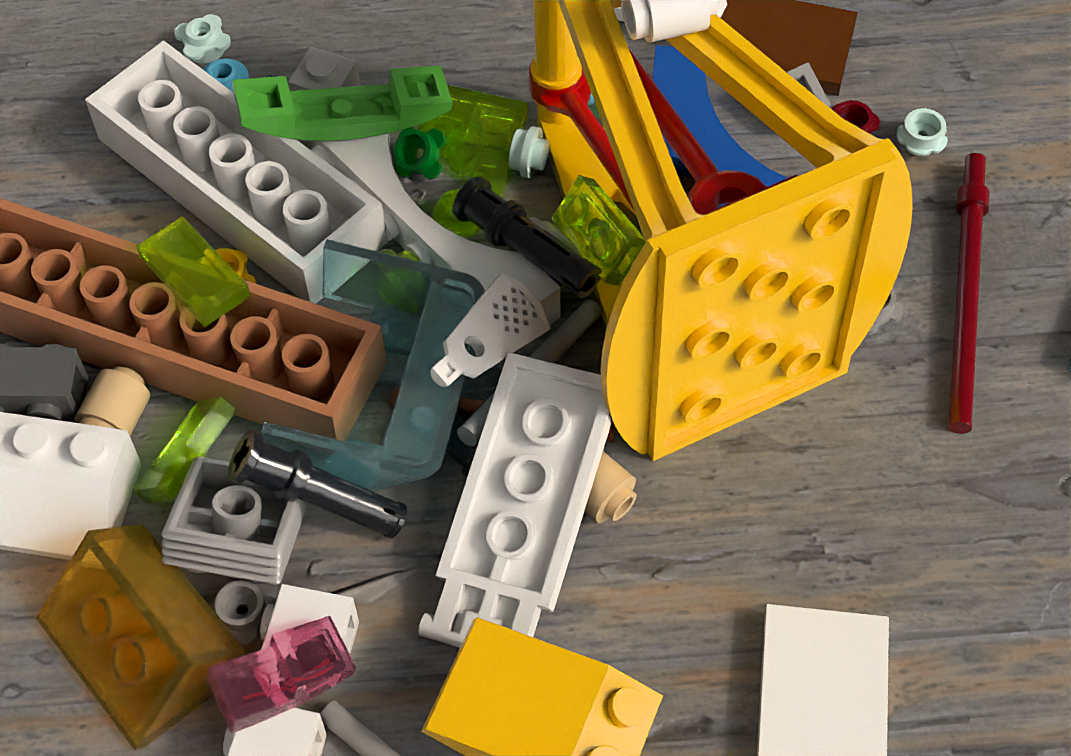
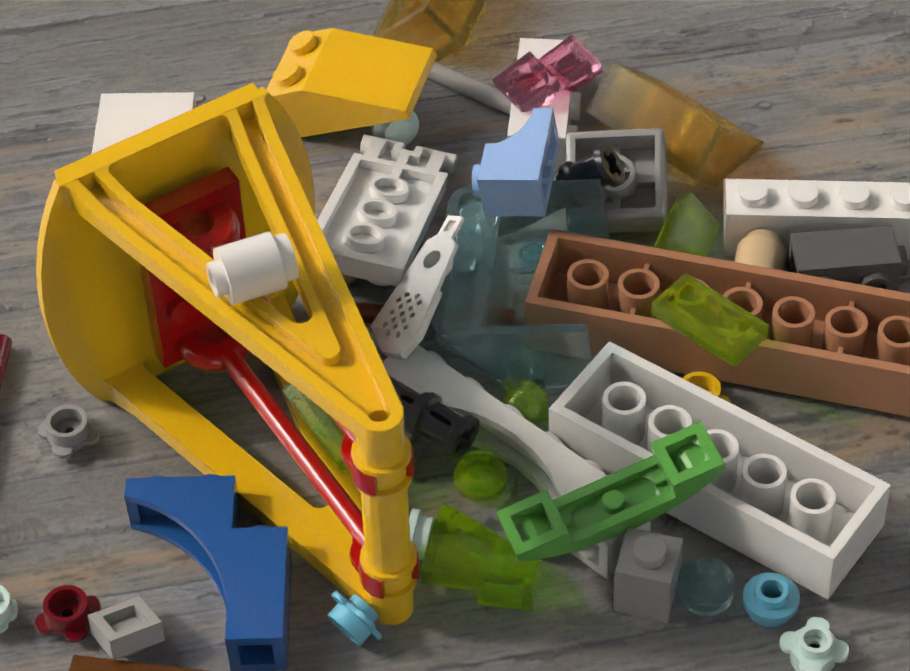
camera: 175 degrees right, 10 degrees down
(354, 429) = (520, 170): none -> light blue arch

